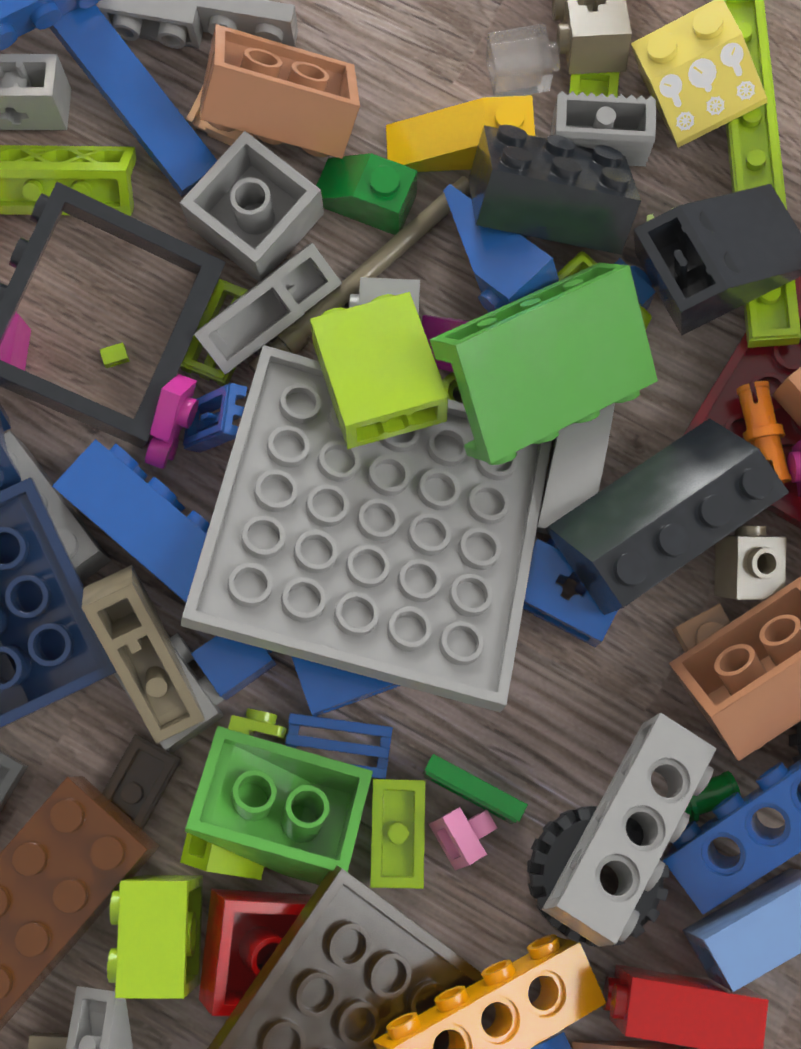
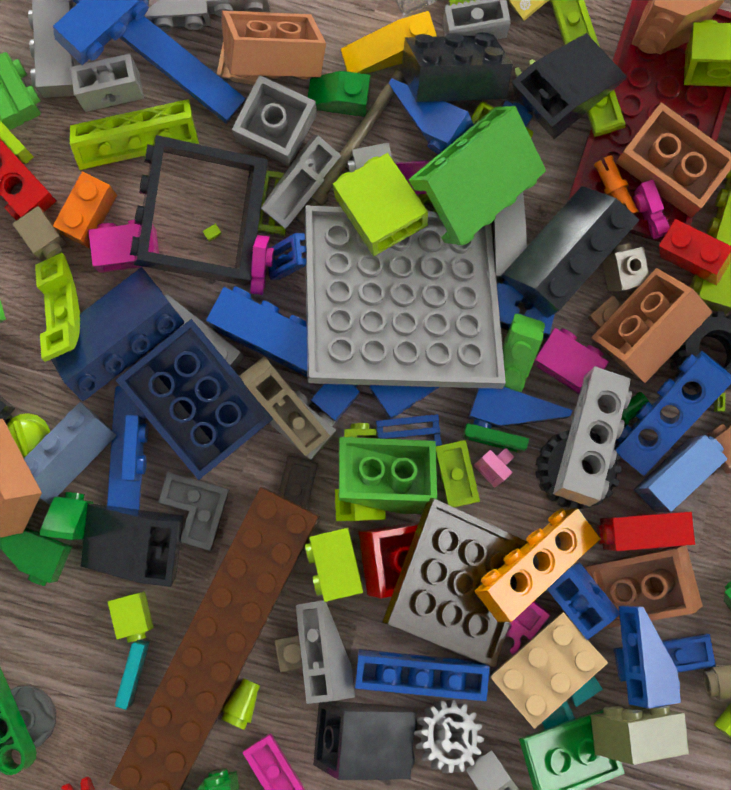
camera: 15 degrees left, 5 degrees up
(513, 747) = (511, 408): none -> blue slope
(547, 657) = (521, 350): none -> bright green brick
(623, 689) = (568, 359): none -> dark pink brick

